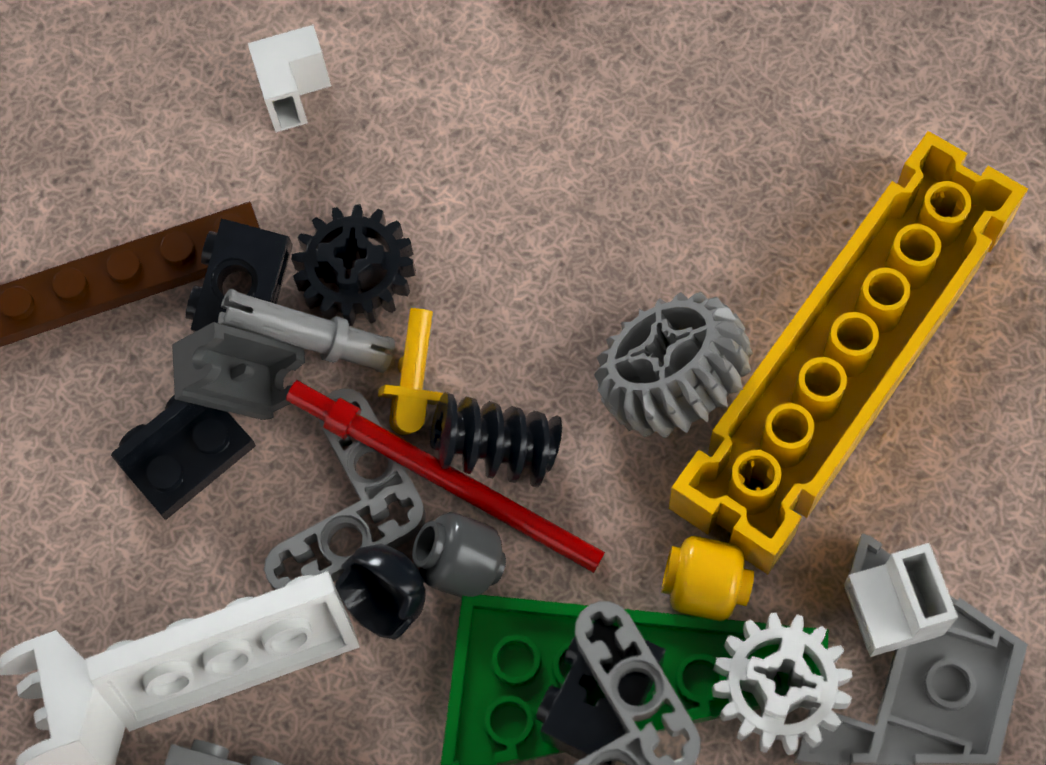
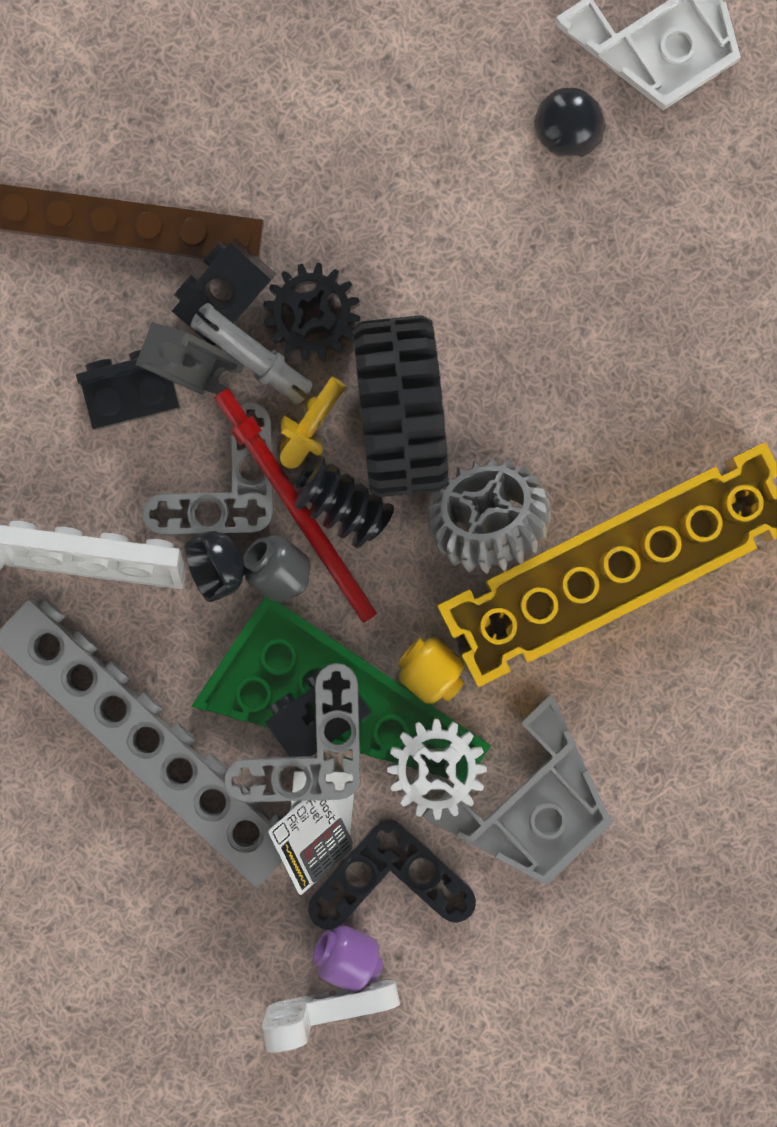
camera: 20 degrees right, 20 degrees up
(288, 68) = (336, 126): white piece -> none
(507, 283) = (401, 405): none -> black tyre
(901, 601) = (542, 757): white piece -> none

